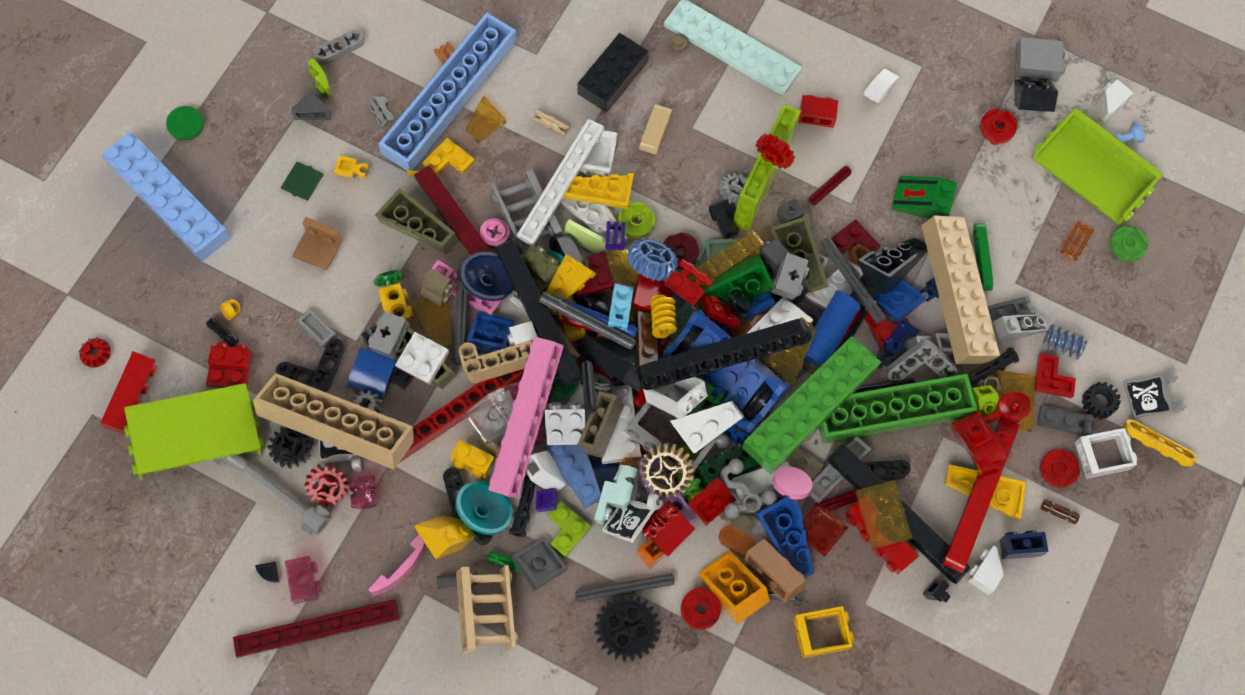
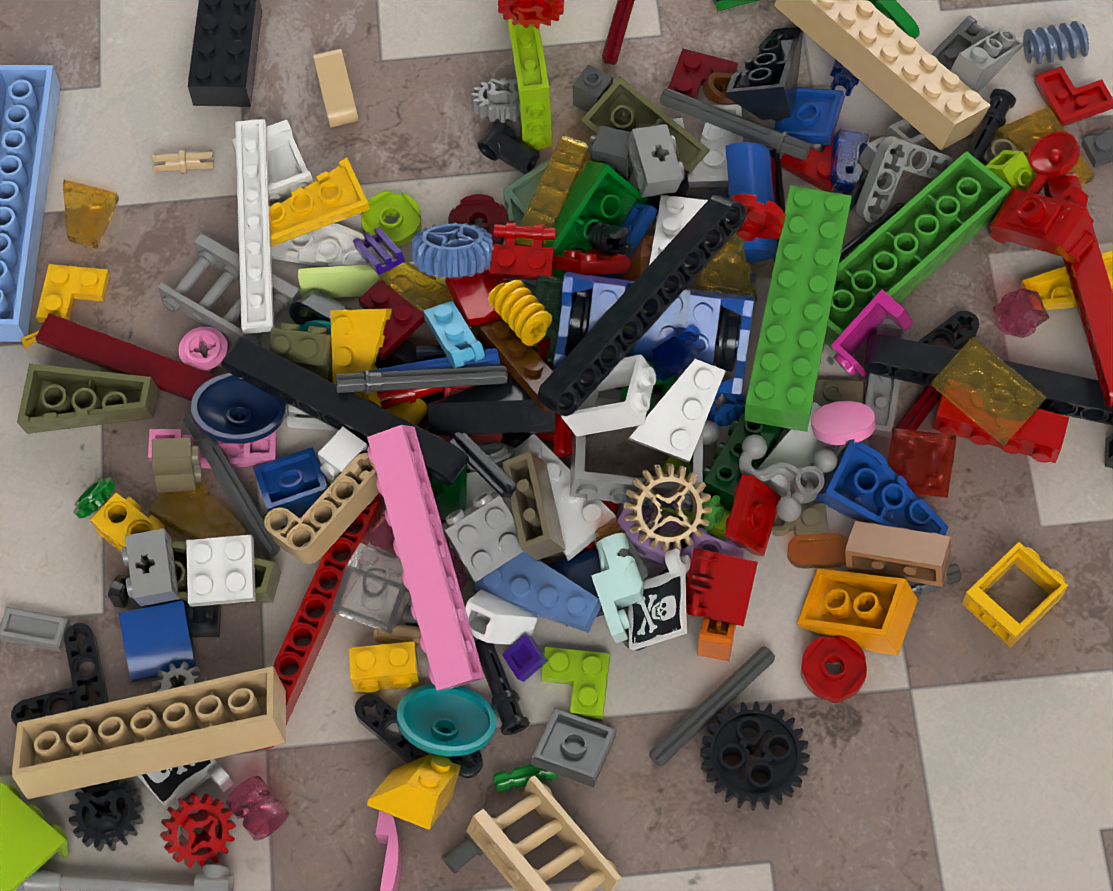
camera: 25 degrees left, 5 degrees down
(723, 390) = (671, 355): none -> clear blue plate
(818, 344) = (761, 219): none -> red plate
(841, 436) = (863, 326): none -> dark pink panel
(934, 482) = (1020, 313): none -> clear pink brick

